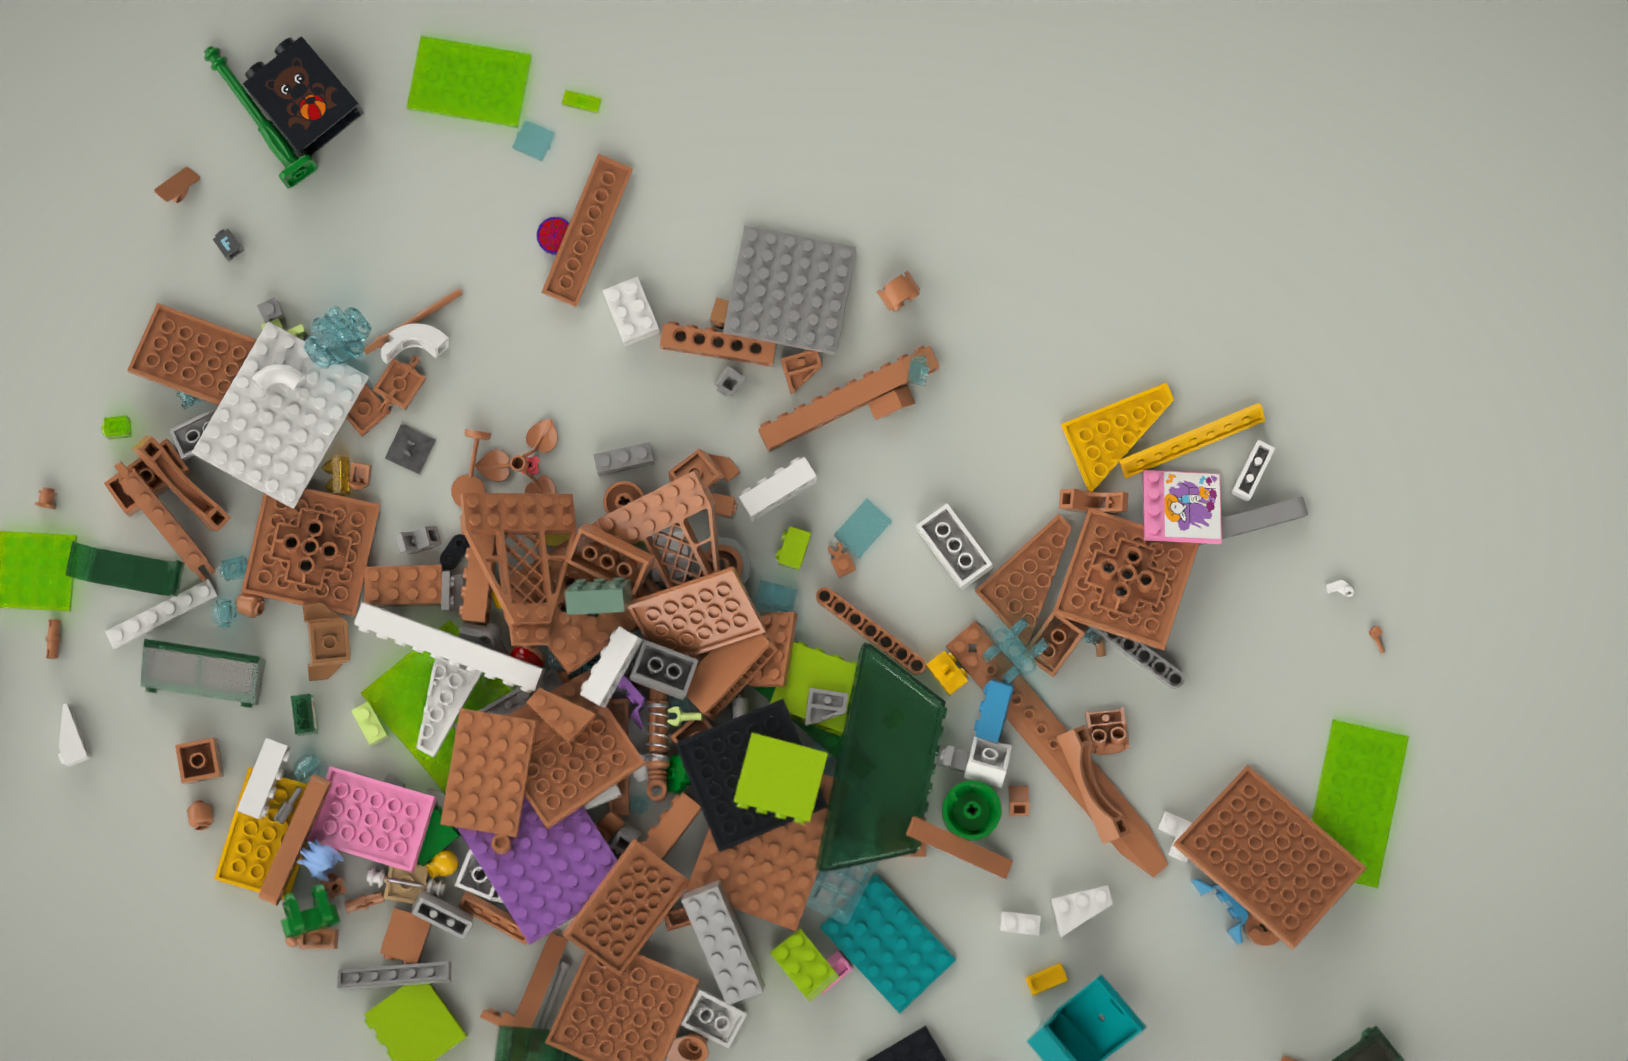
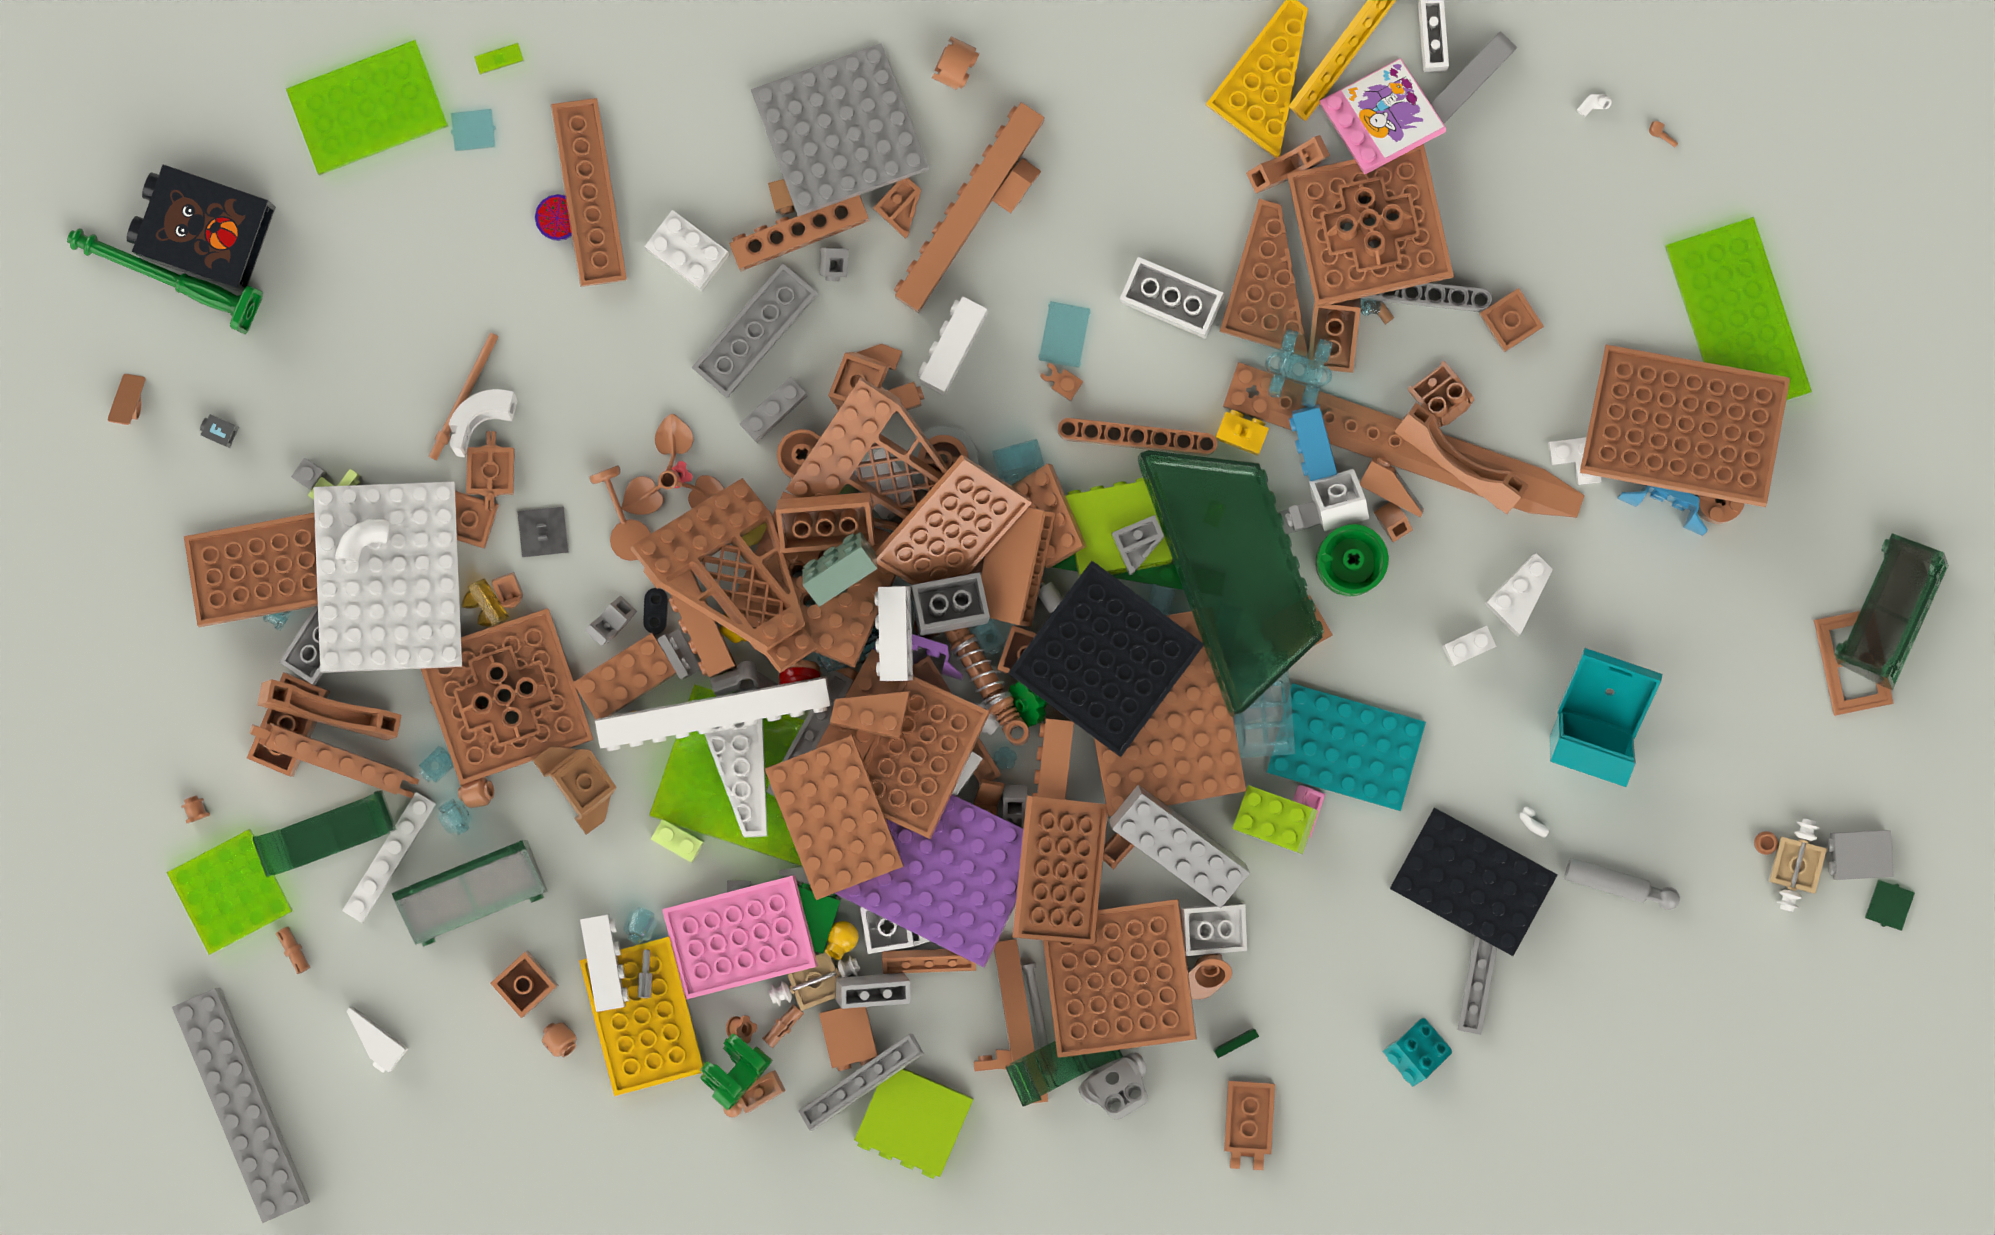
camera: 30 degrees left, 5 degrees up
(116, 427) = (221, 692): clear neon green brick -> none
(295, 839) = (674, 1005): nougat beam -> none
(304, 714) = (603, 872): clear green brick -> none
(320, 860) = (713, 1010): light blue hair -> none
(335, 336) = (394, 460): clear light blue piece -> none
(501, 844) = (891, 882): nougat tile -> none
(645, 395) = (754, 330): none -> light grey plate
(681, 716) = (999, 639): yellowish green bar -> none
(780, 778) = (1139, 644): lime brick -> none
(794, 548) = (1006, 398): lime brick -> none
(918, 370) = (1025, 135): clear light blue brick -> none
(959, 847) = (1362, 605): nougat tile -> none
(1030, 771) = (1388, 484): none -> nougat slope
(1046, 979) = (1529, 686): yellow tile -> none
(1189, 707) = (1511, 320): none -> nougat plate

